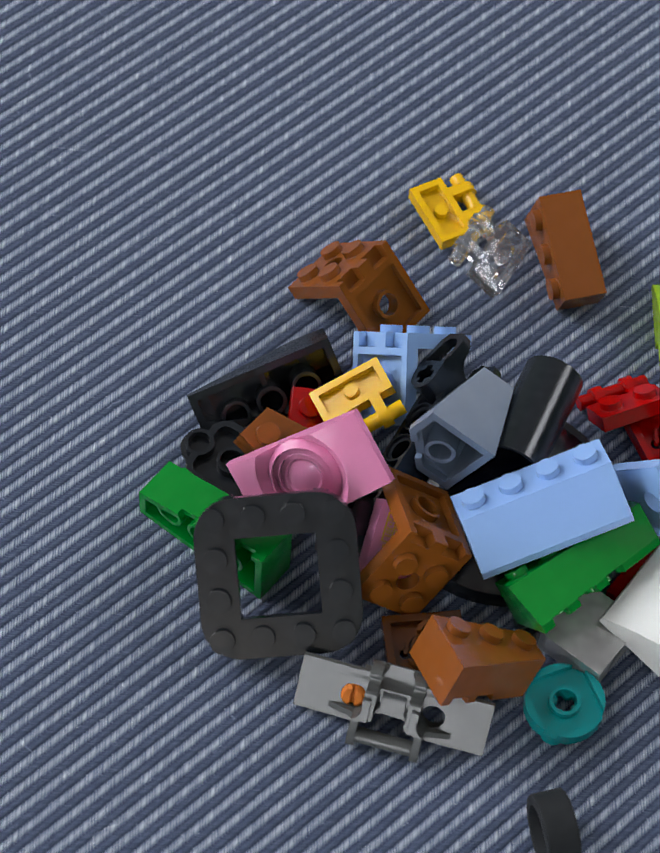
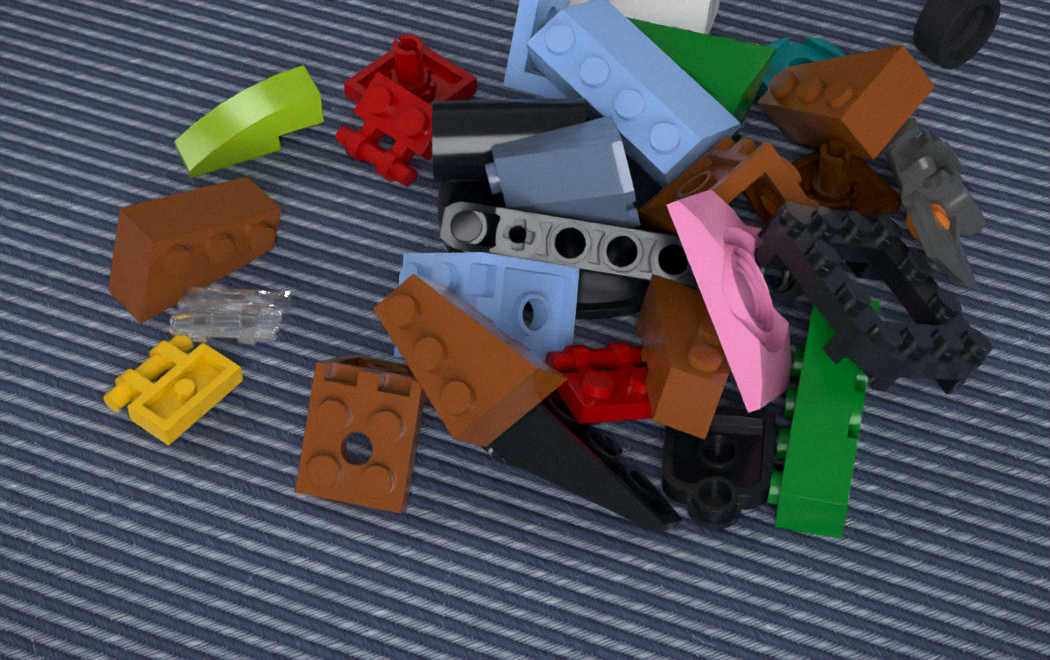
camera: 110 degrees left, 10 degrees down
(345, 306) = (463, 361): none -> dark orange wedge
(359, 390) = (575, 323): yellow plate -> none

